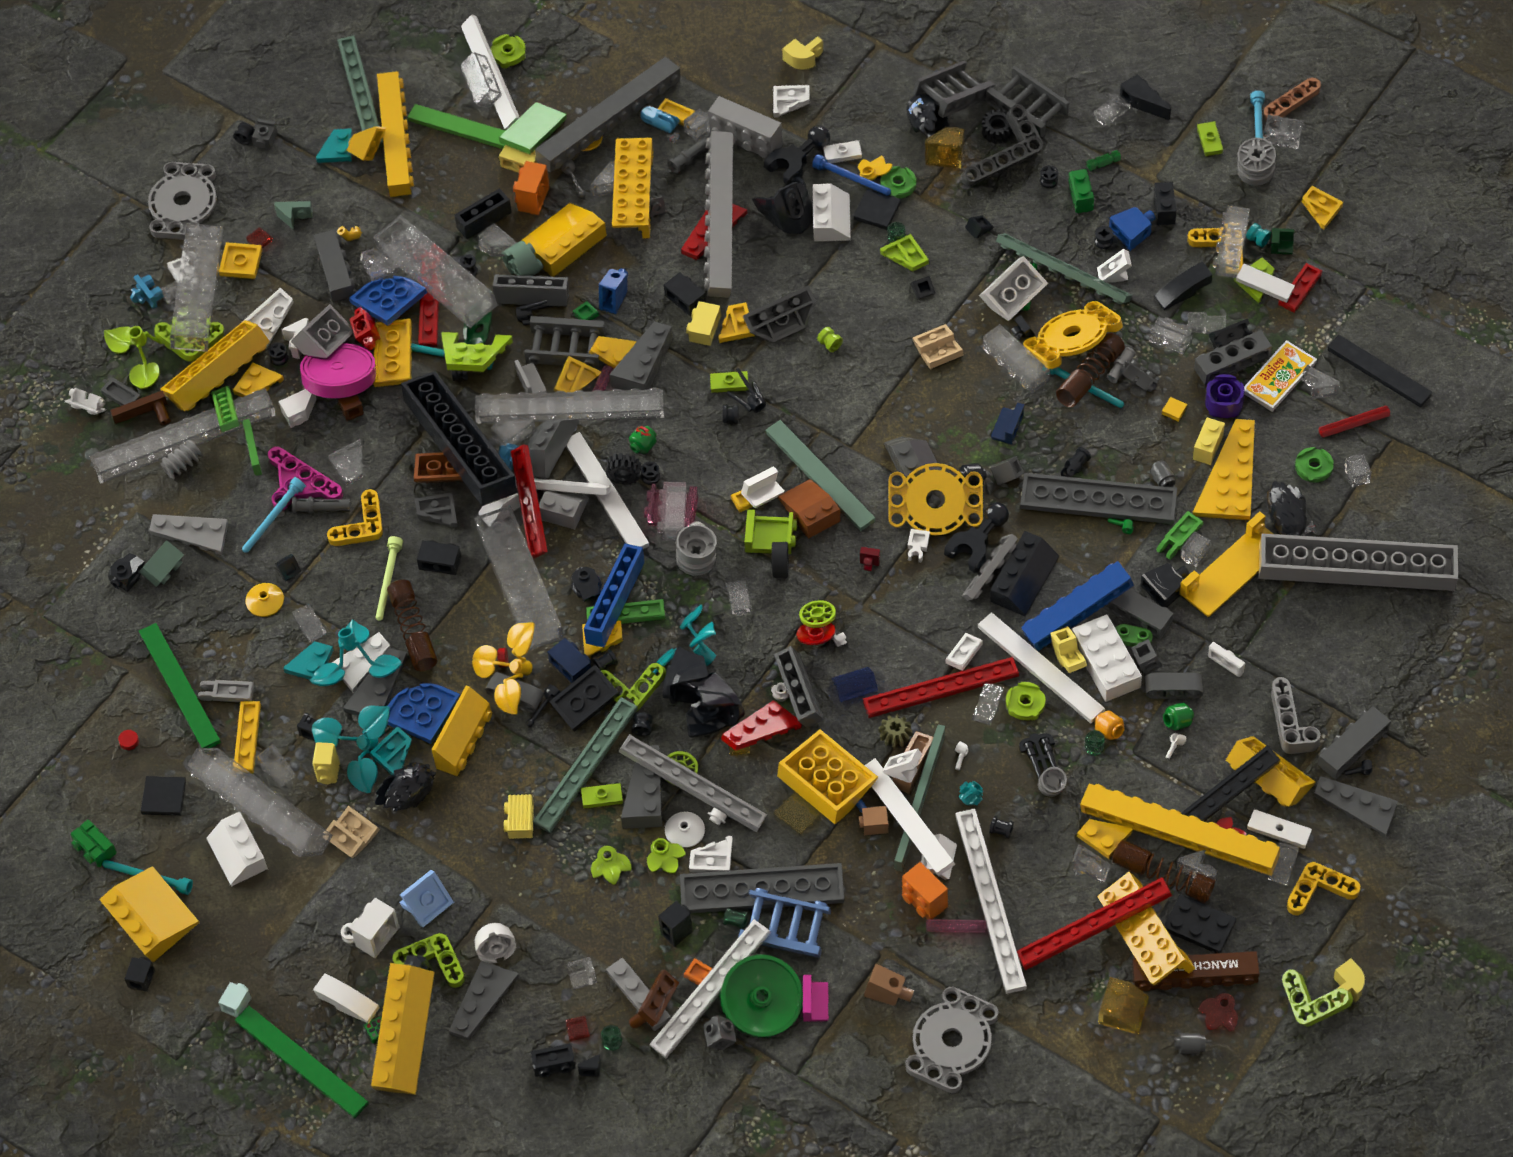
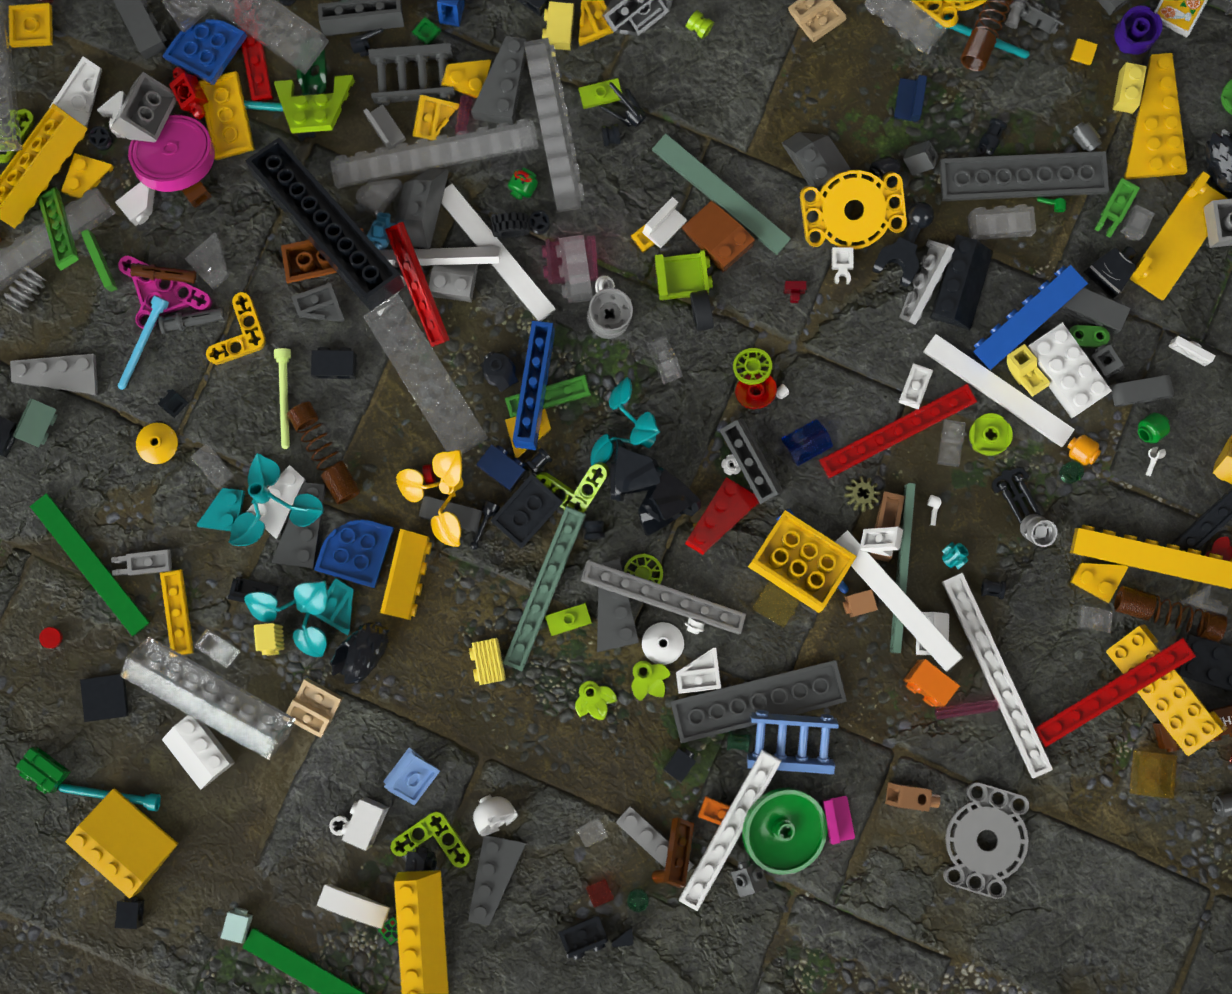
camera: 10 degrees left, 25 degrees up
(298, 460) = (154, 272): none -> reddish brown pin
(680, 396) = (554, 124): none -> clear brick
(1070, 531) = (1001, 222): none -> clear brick

